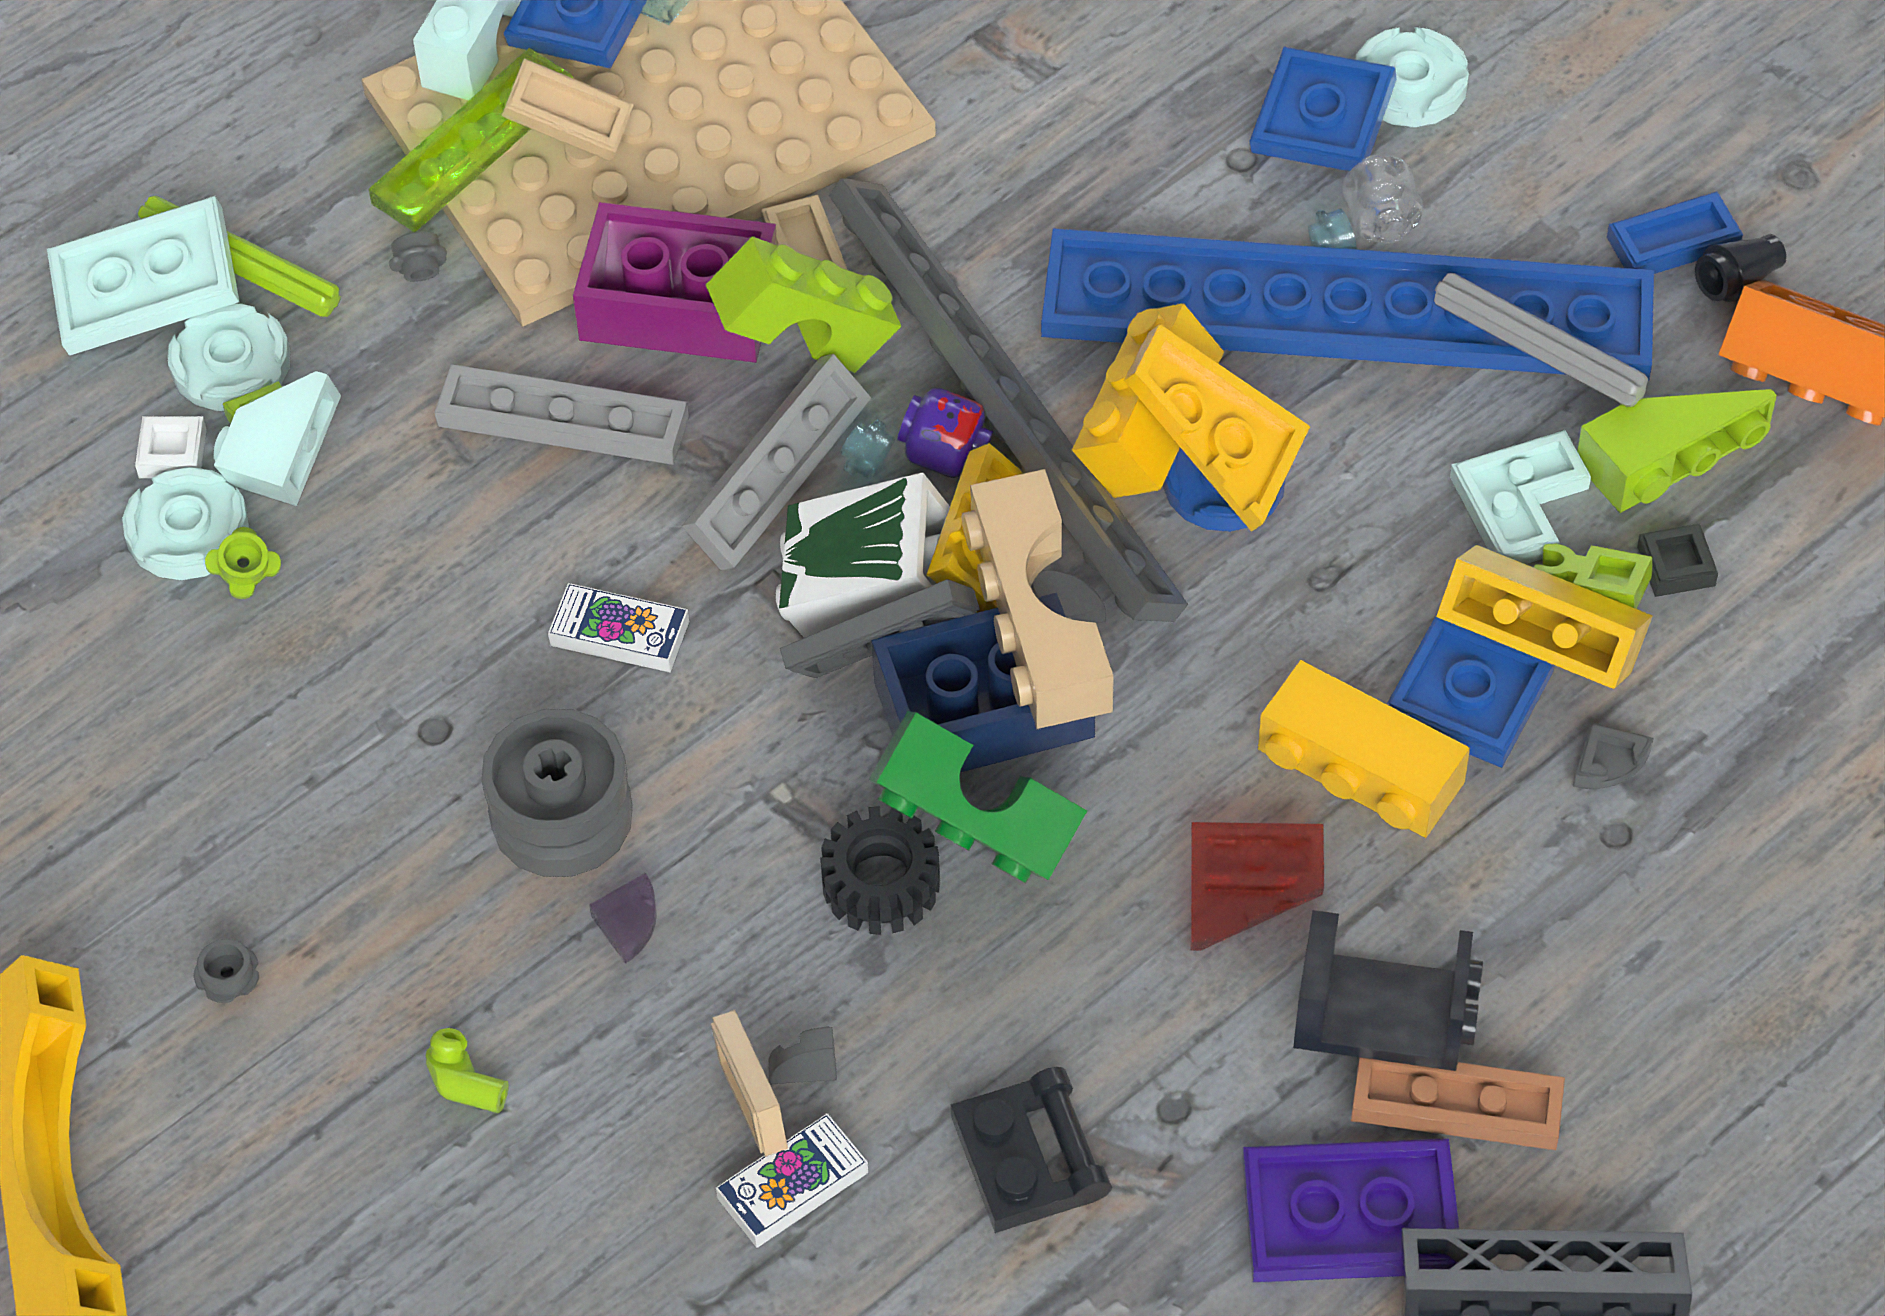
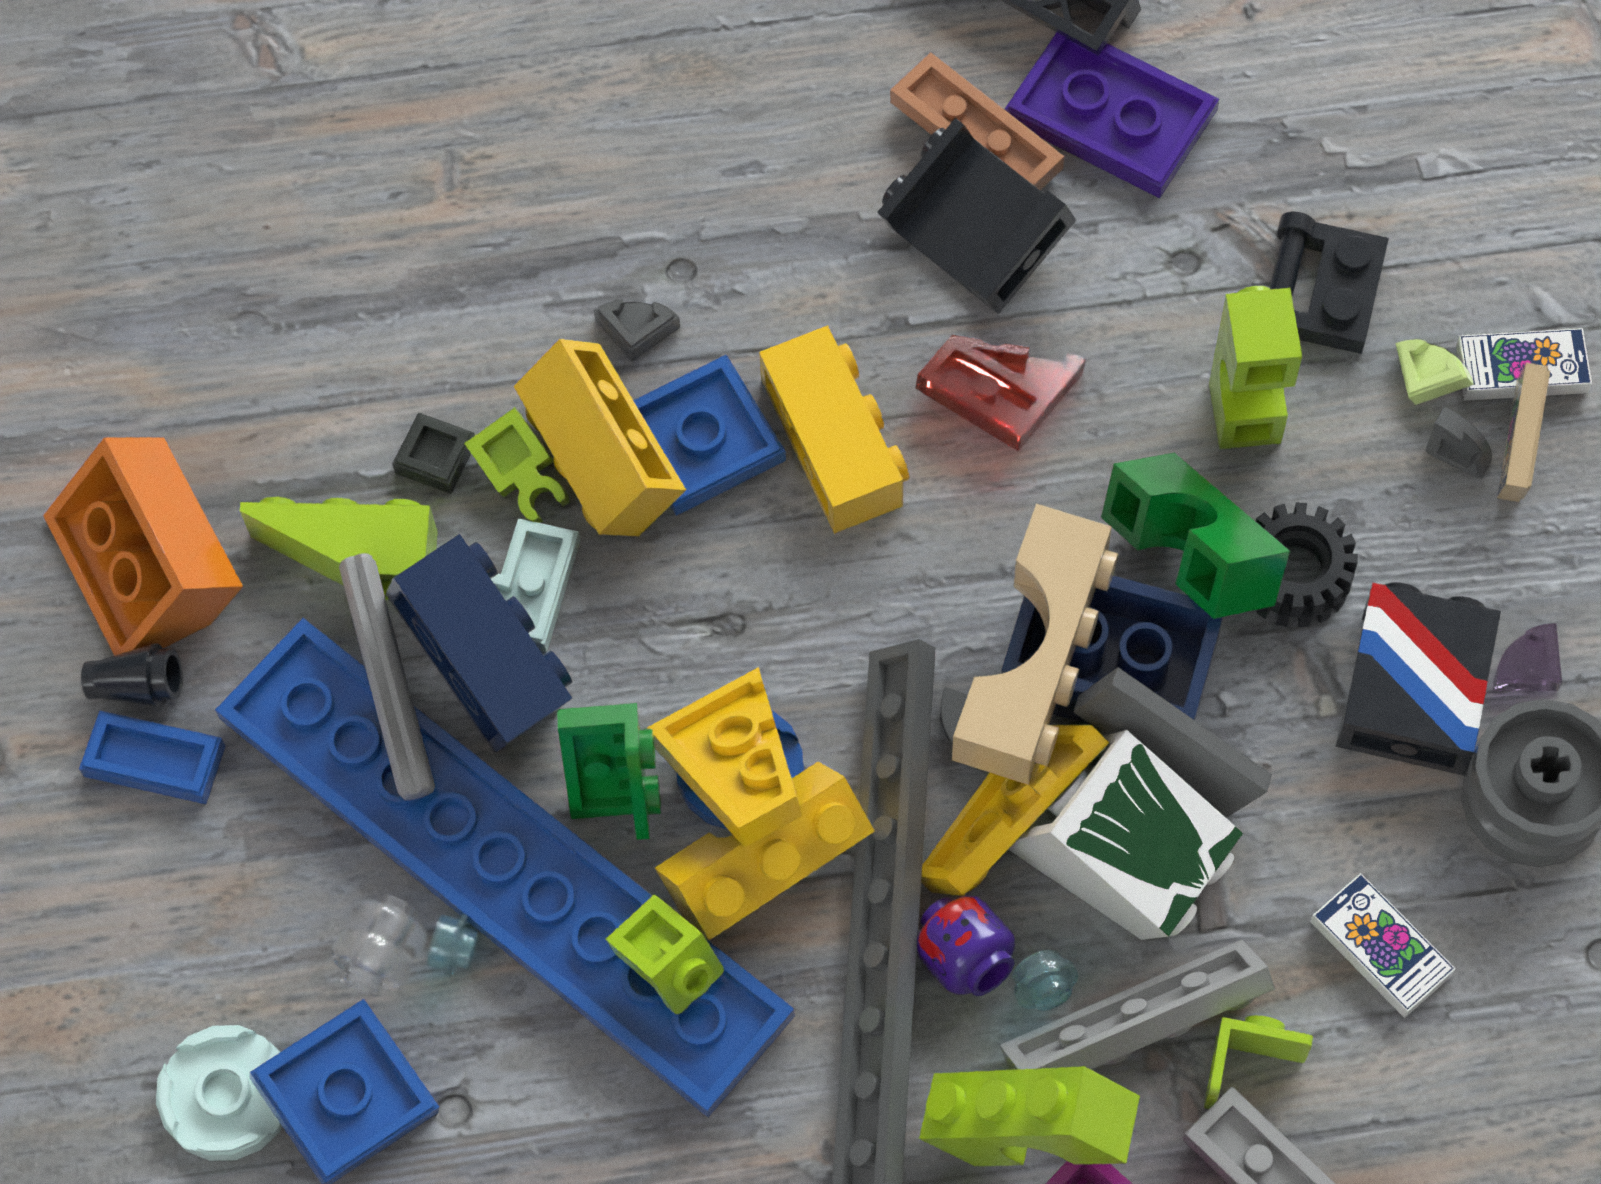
camera: 145 degrees left, 10 degrees up
(673, 495) = (1258, 1036): none -> lime bracket
(716, 830) = (1419, 678): none -> panel
(874, 1117) = (1430, 370): none -> yellowish green tile
(1029, 950) = (1252, 364): none -> lime arch
(1161, 279) = (667, 953): none -> lime bracket
(1300, 383) = (607, 764): none -> green bracket
(1484, 377) = (479, 641): none -> dark blue brick

